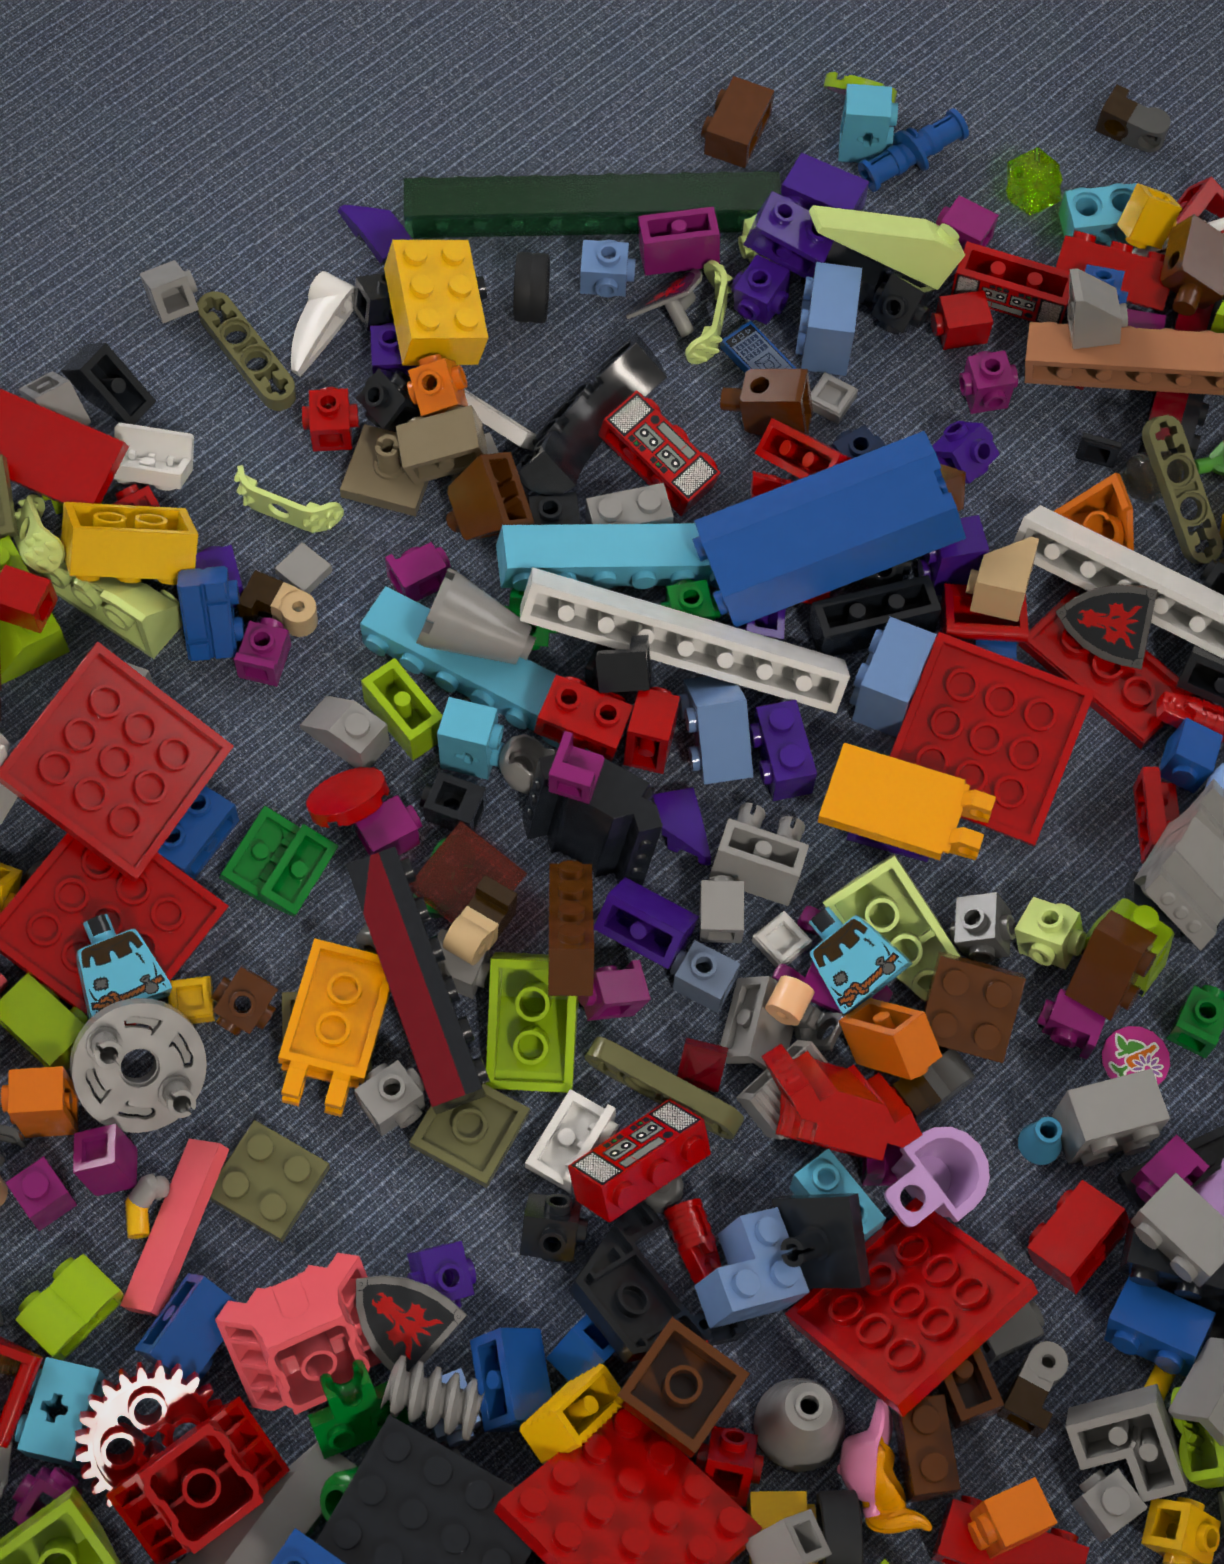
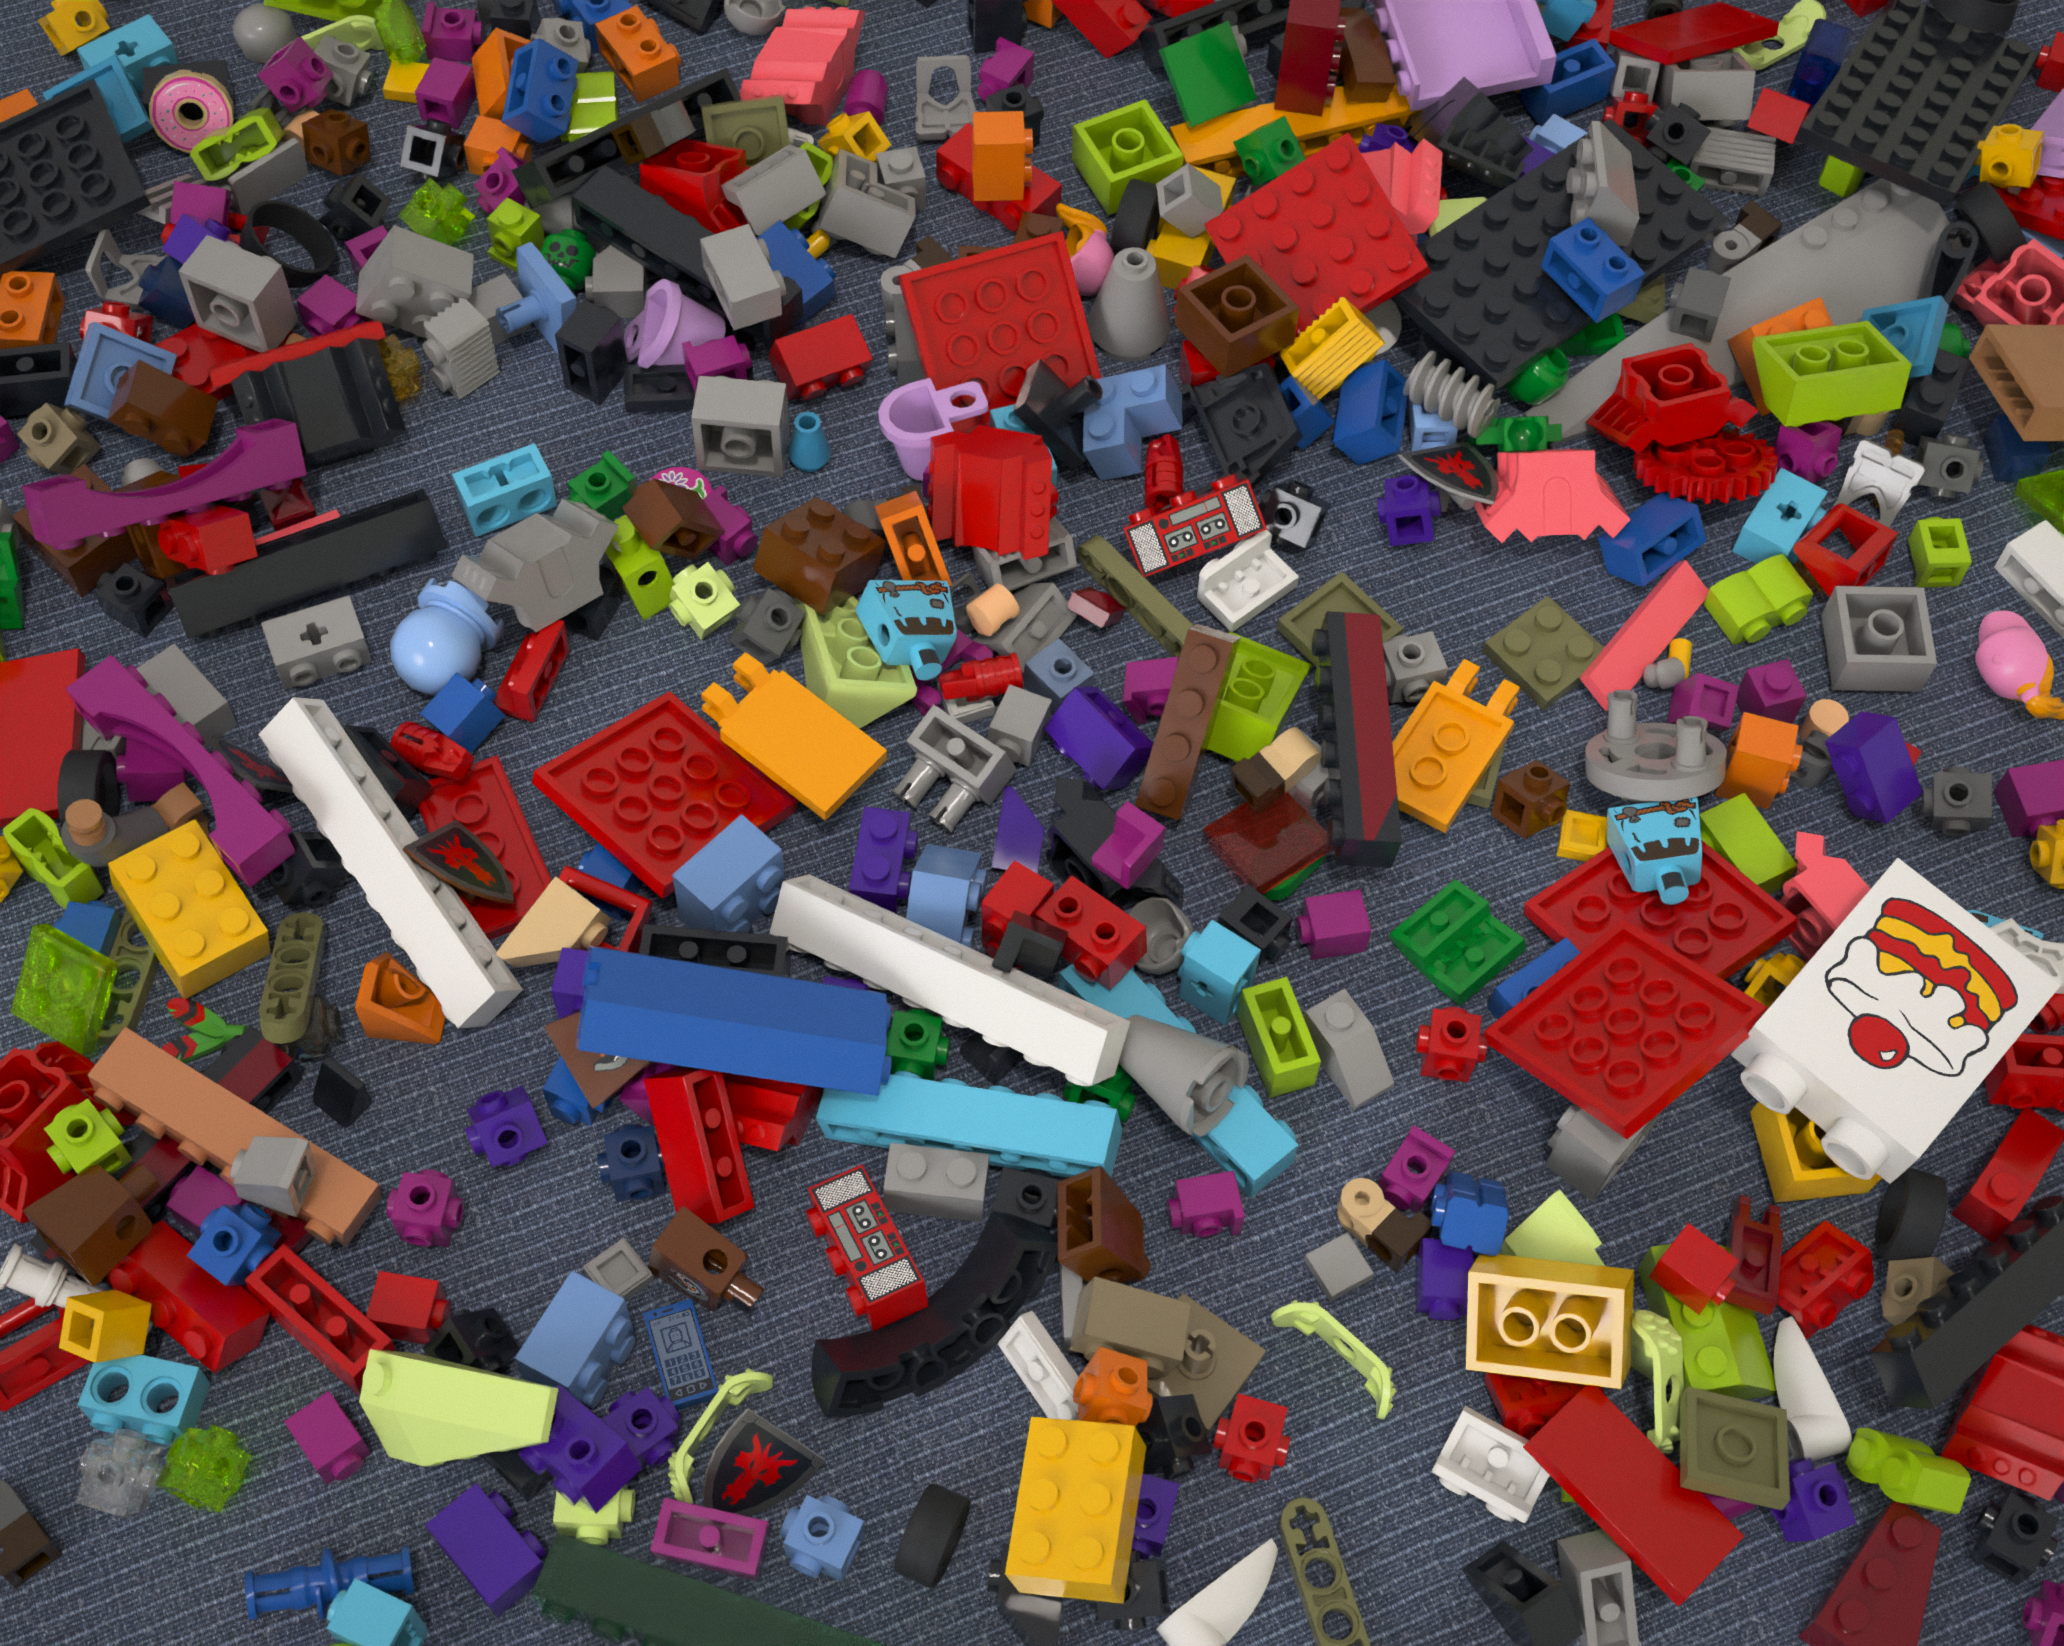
camera: 160 degrees left, 5 degrees down
(260, 756) = (1451, 1044): none -> red brick
(347, 797) = (1369, 961): red tile -> none
(771, 942) = (982, 678): none -> red hinge
(1086, 161) = (119, 1473): none -> clear brick

